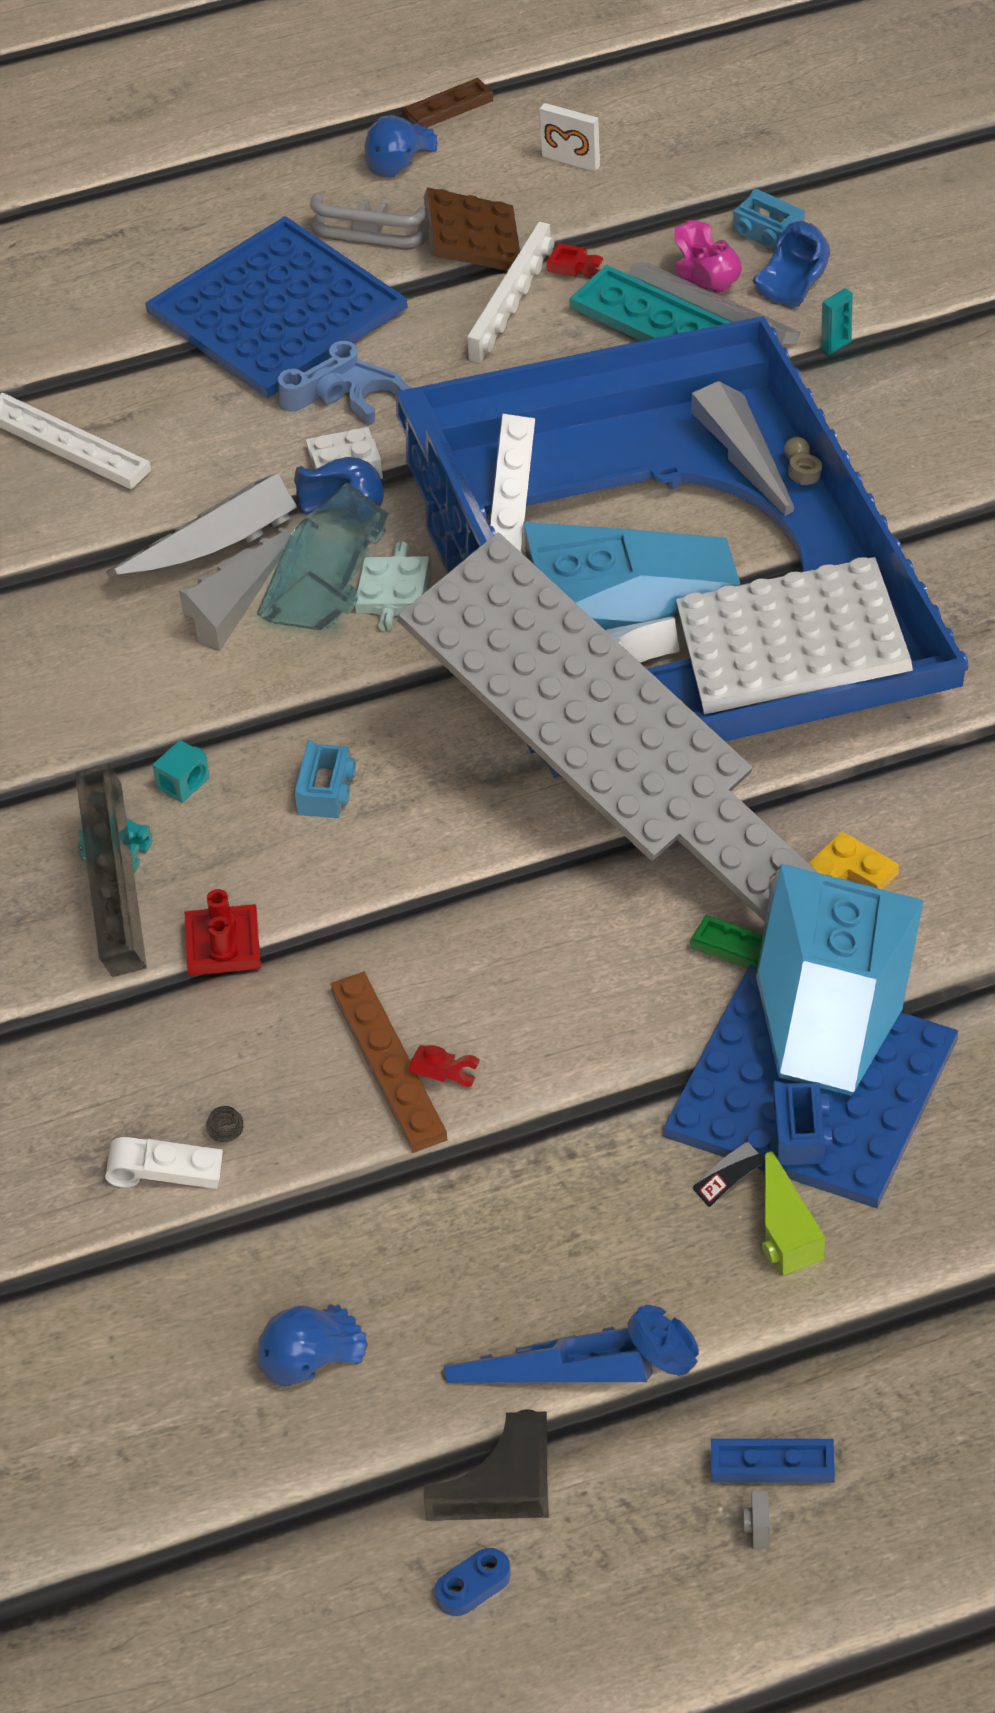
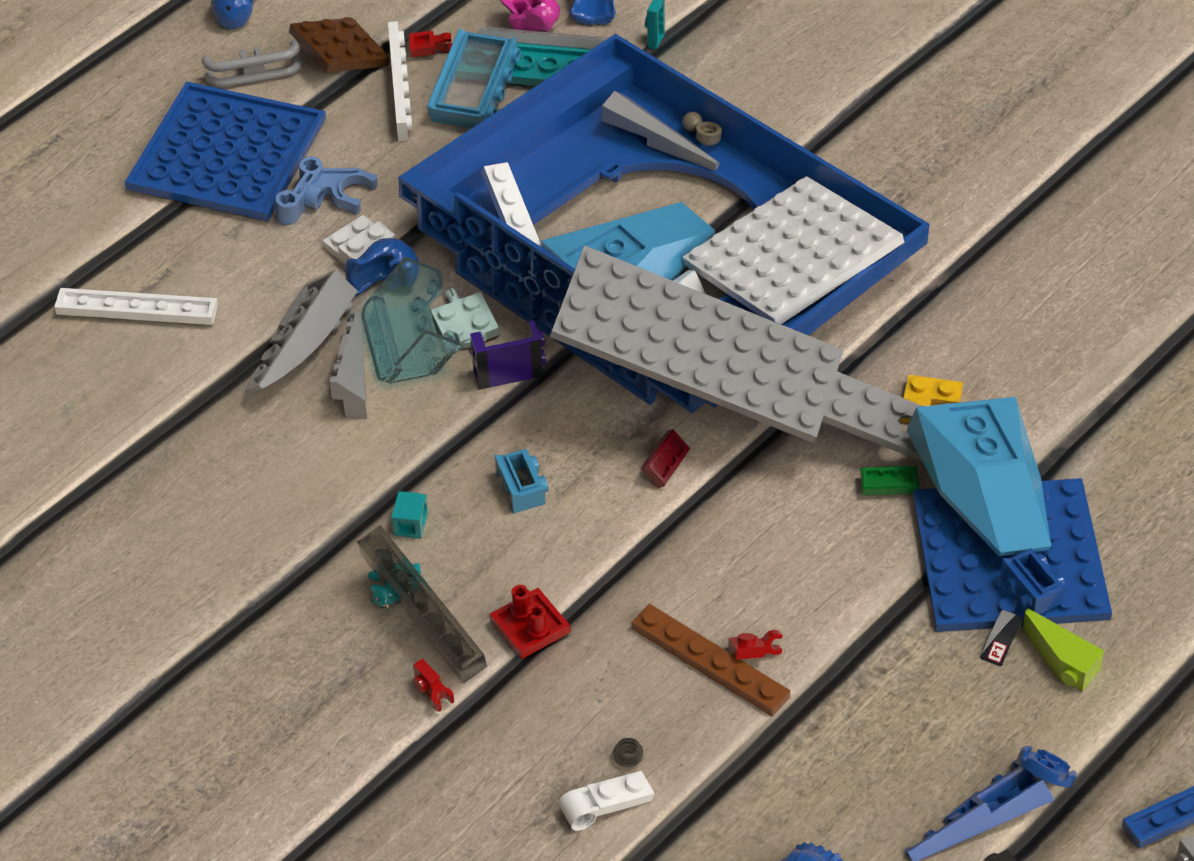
camera: 30 degrees left, 0 degrees up
(70, 959) = (429, 681): none -> red plate
(388, 645) = (508, 361): none -> dark purple panel
(496, 818) = (665, 458): none -> dark red plate
(588, 312) = (473, 79): none -> dark azure window

